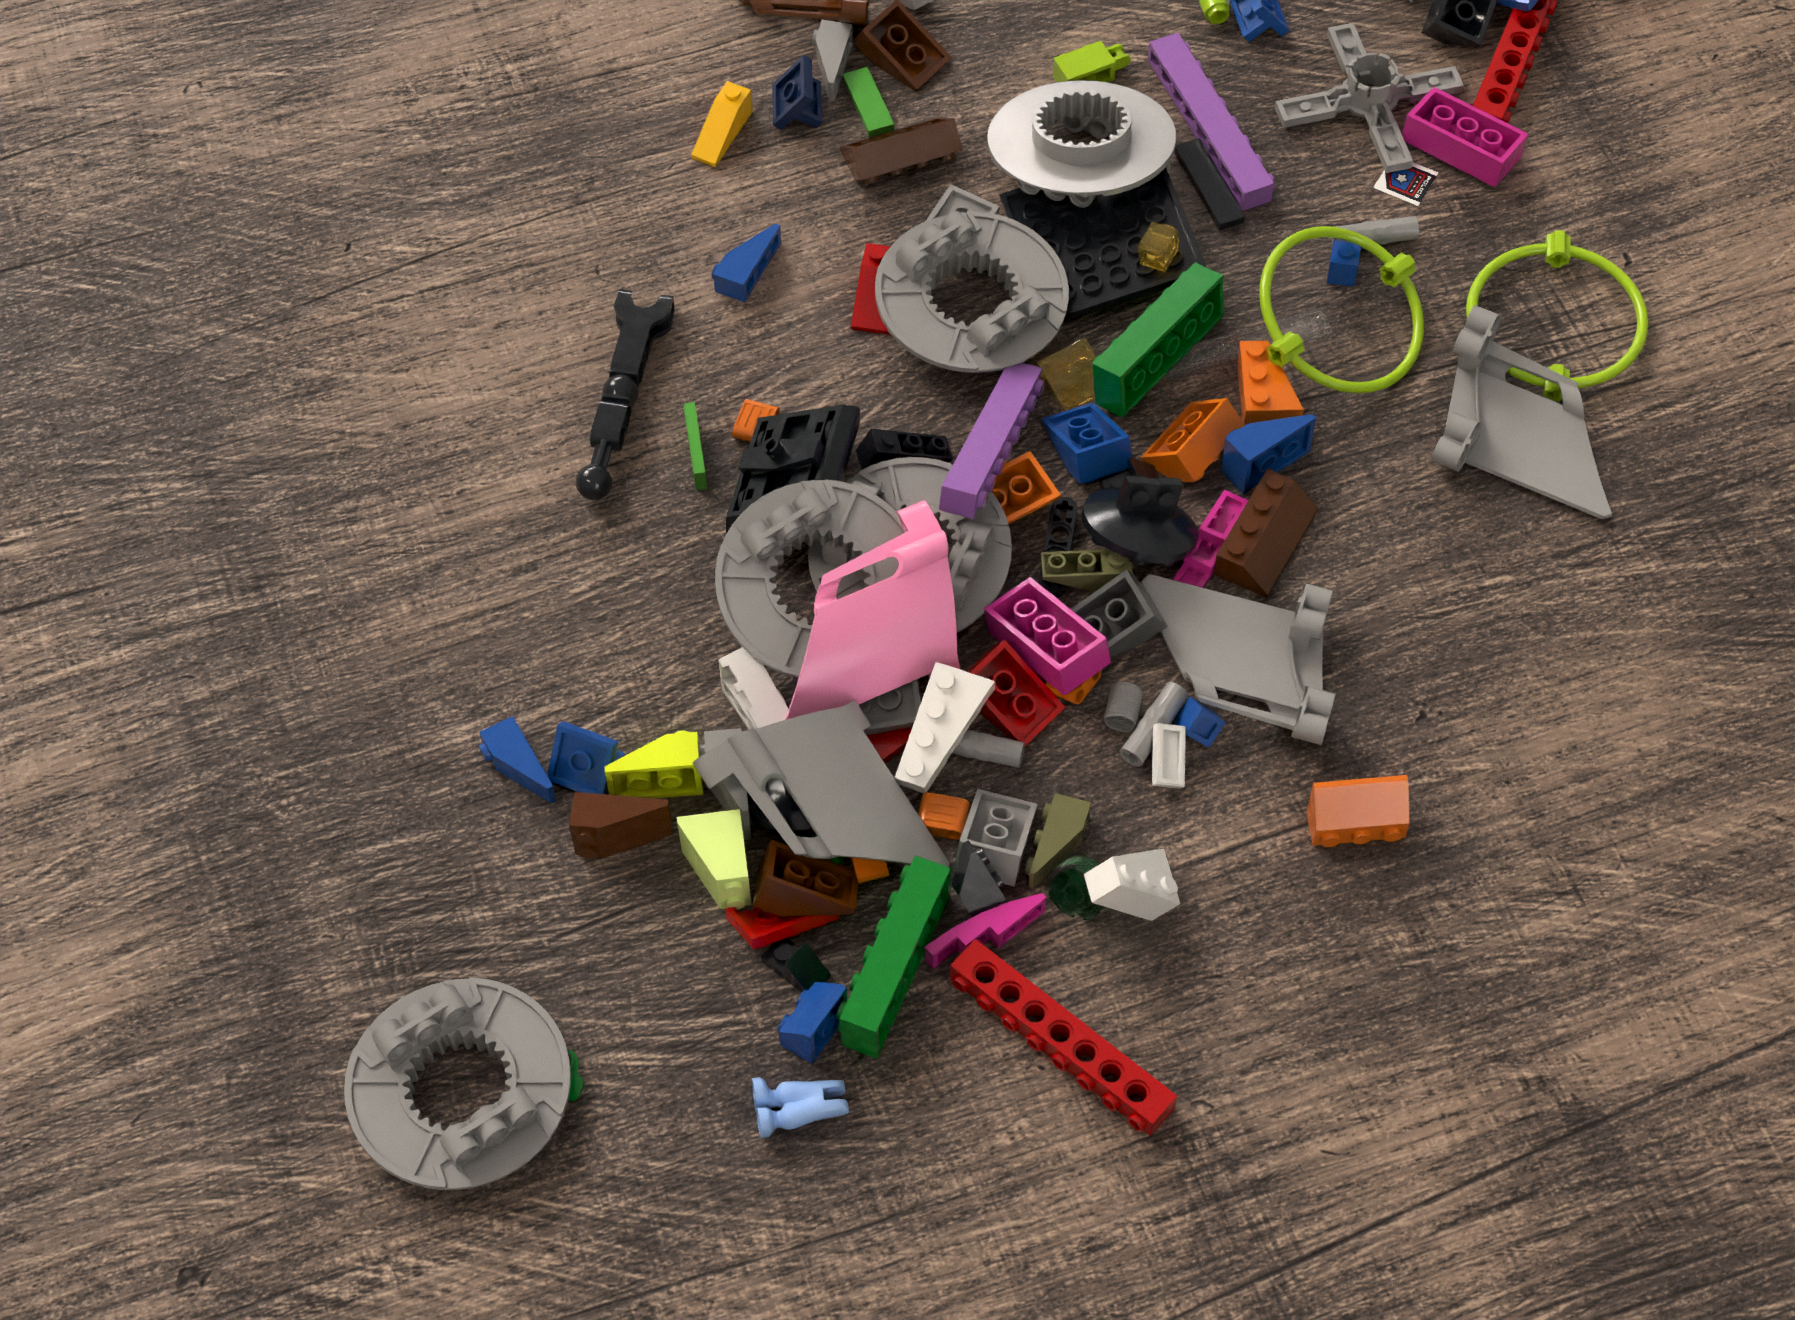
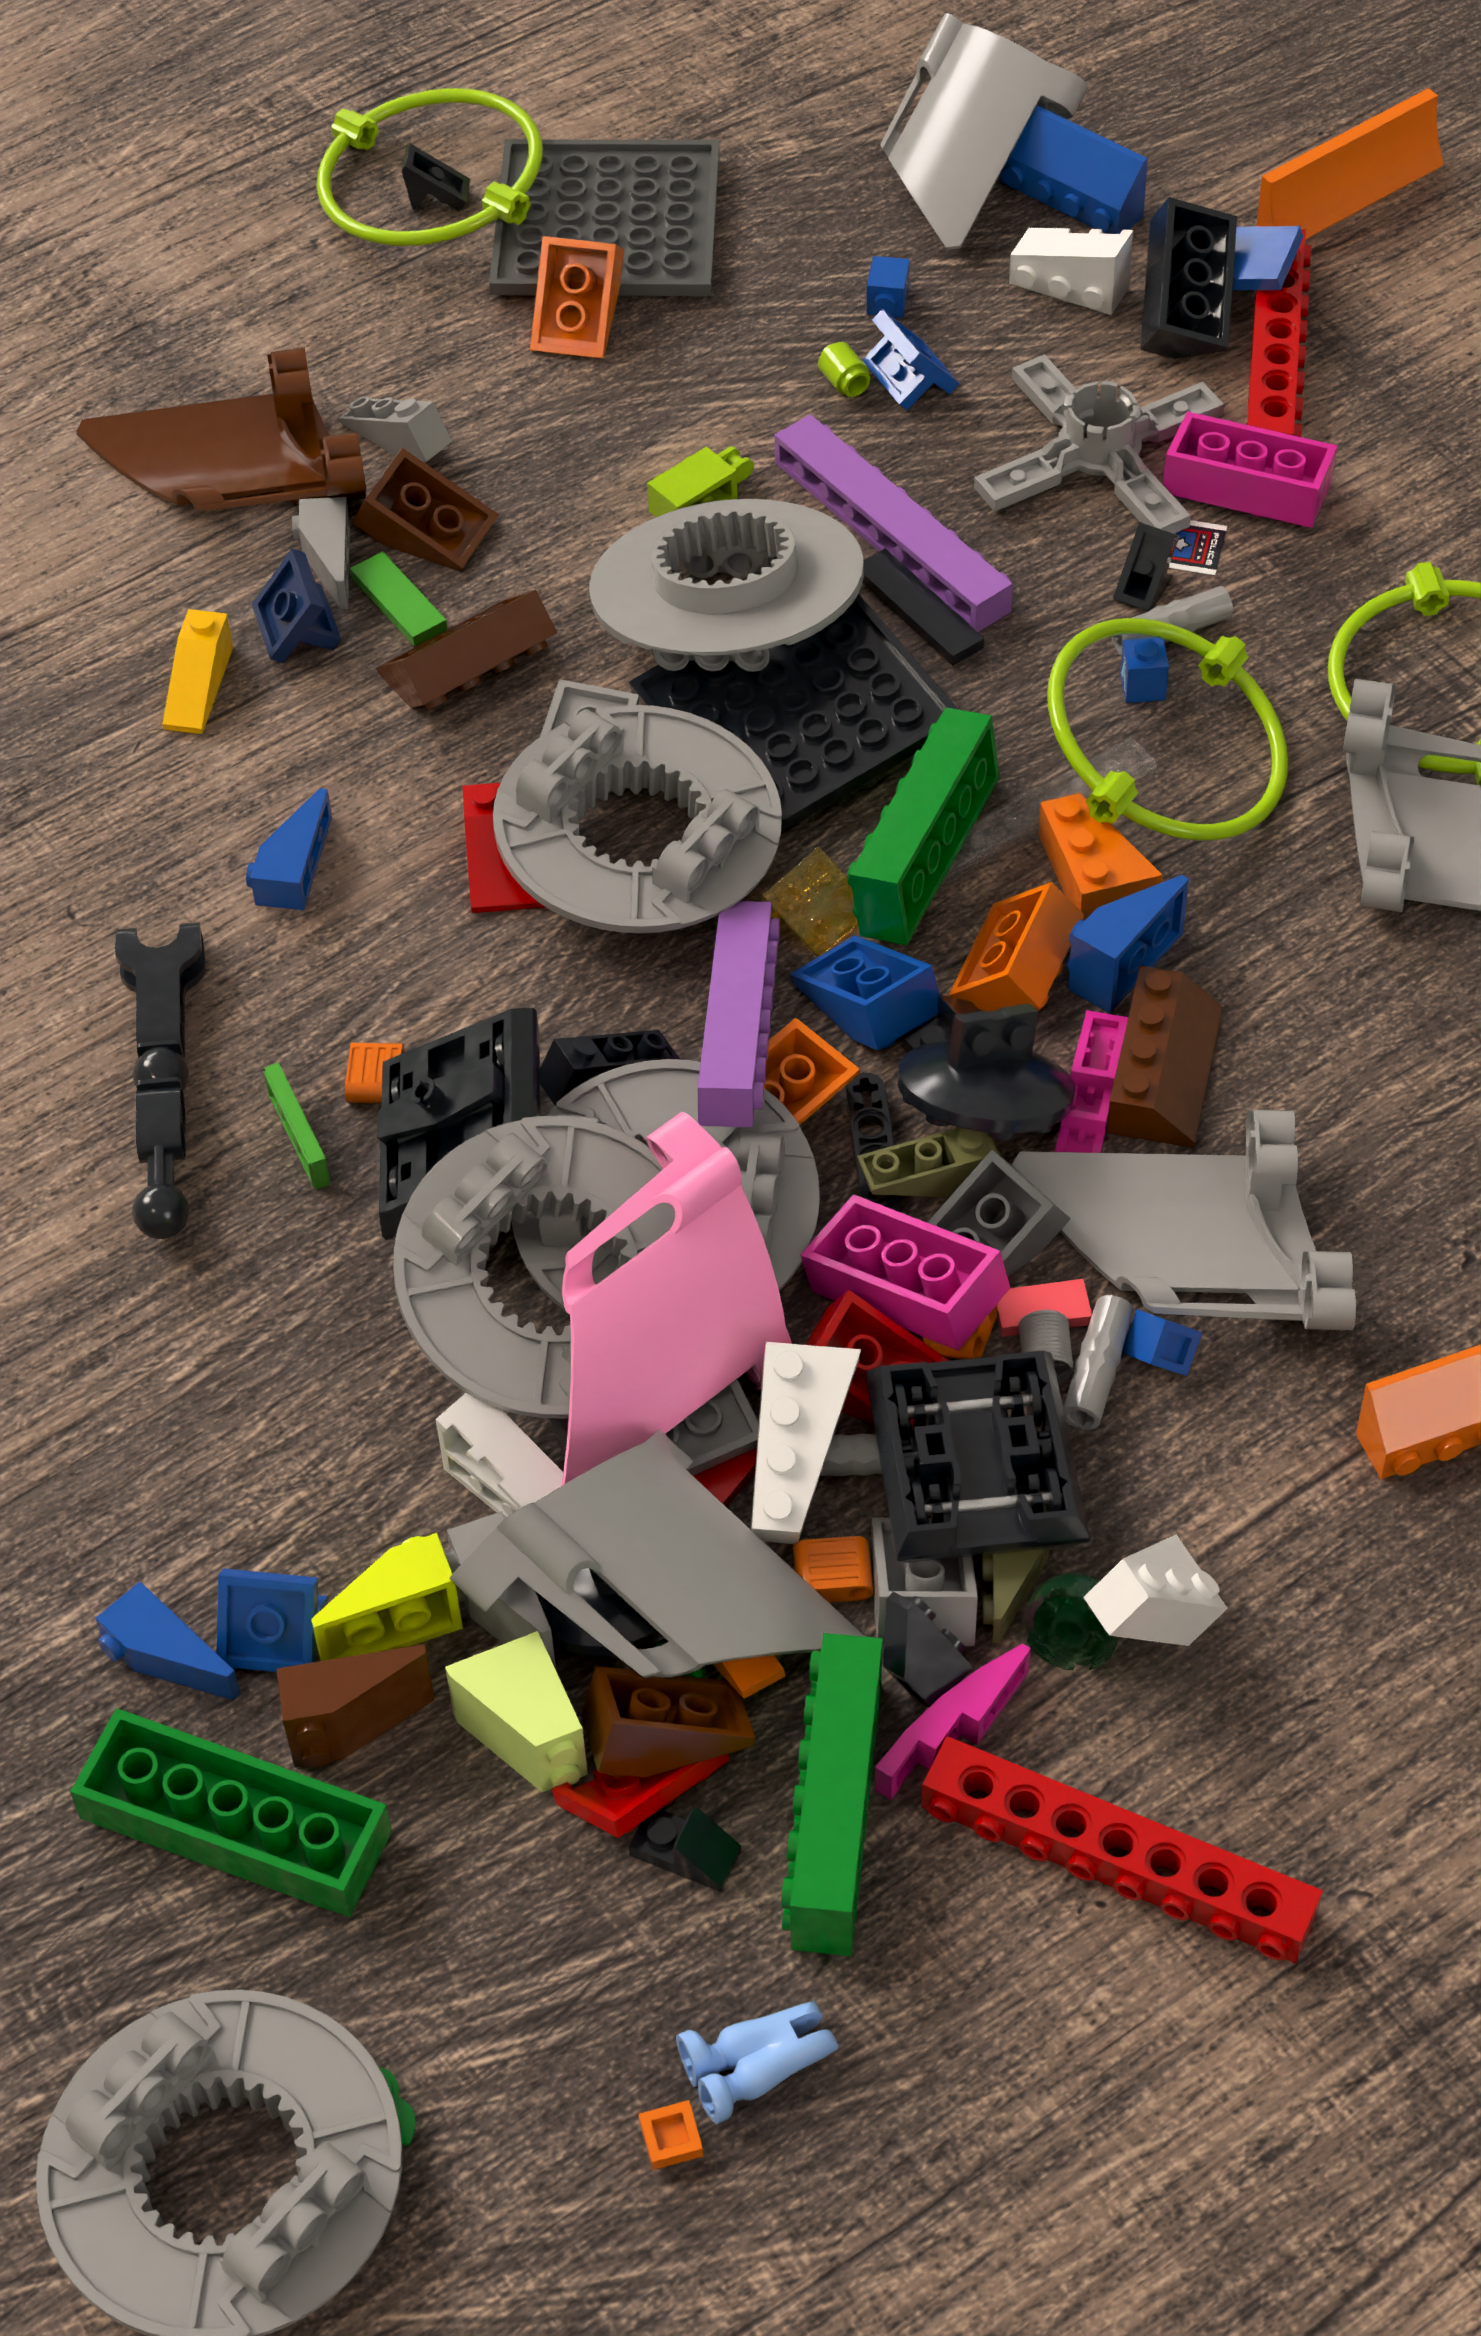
camera: 15 degrees left, 5 degrees down
(527, 873) = (232, 1812): none -> green brick
(731, 1137) = (671, 2135): none -> orange plate
(813, 1020) = (741, 1921): blue slope -> none
(1050, 767) = (972, 1460): none -> black piece
(1145, 677) = (1064, 1296): none -> coral tile
(1158, 246) = (886, 698): clear yellow brick -> none
(1168, 756) = (1136, 1401): white tile -> none
(1370, 191) = (1146, 567): none -> black slope

